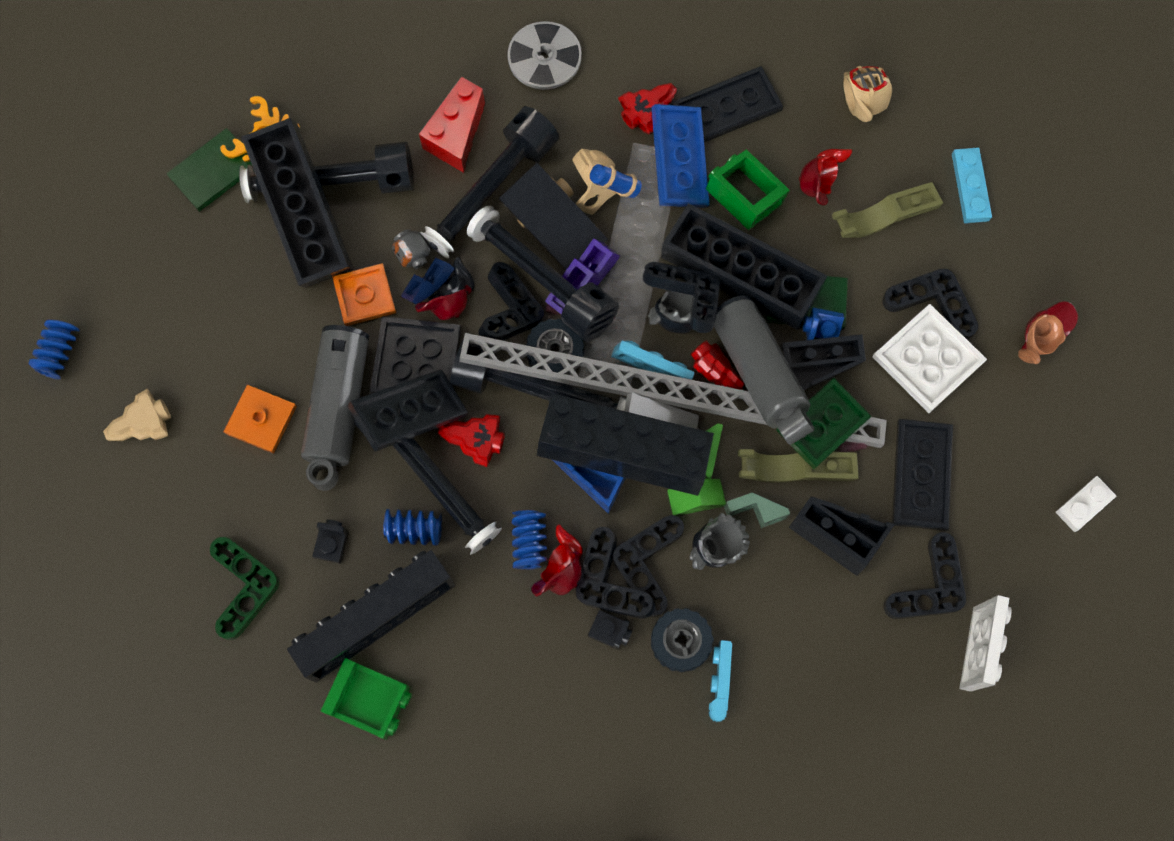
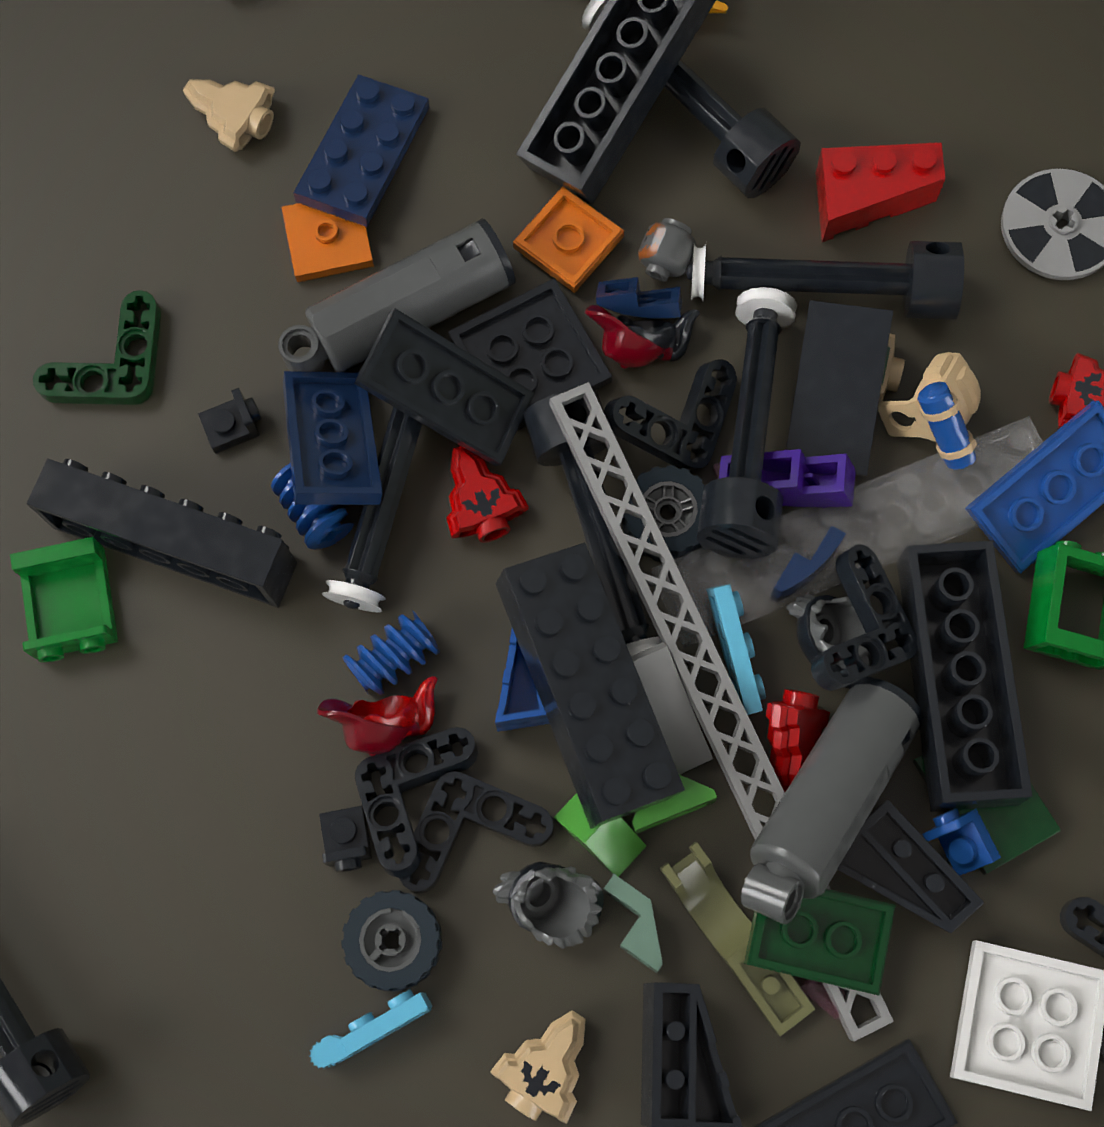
camera: 60 degrees right, 0 degrees up
(224, 366) = (361, 150): none -> dark blue plate
(387, 490) = (330, 439): none -> dark blue plate
(635, 303) = (802, 570): none -> dark blue slope
(799, 605) = (545, 1070): none -> tan rock

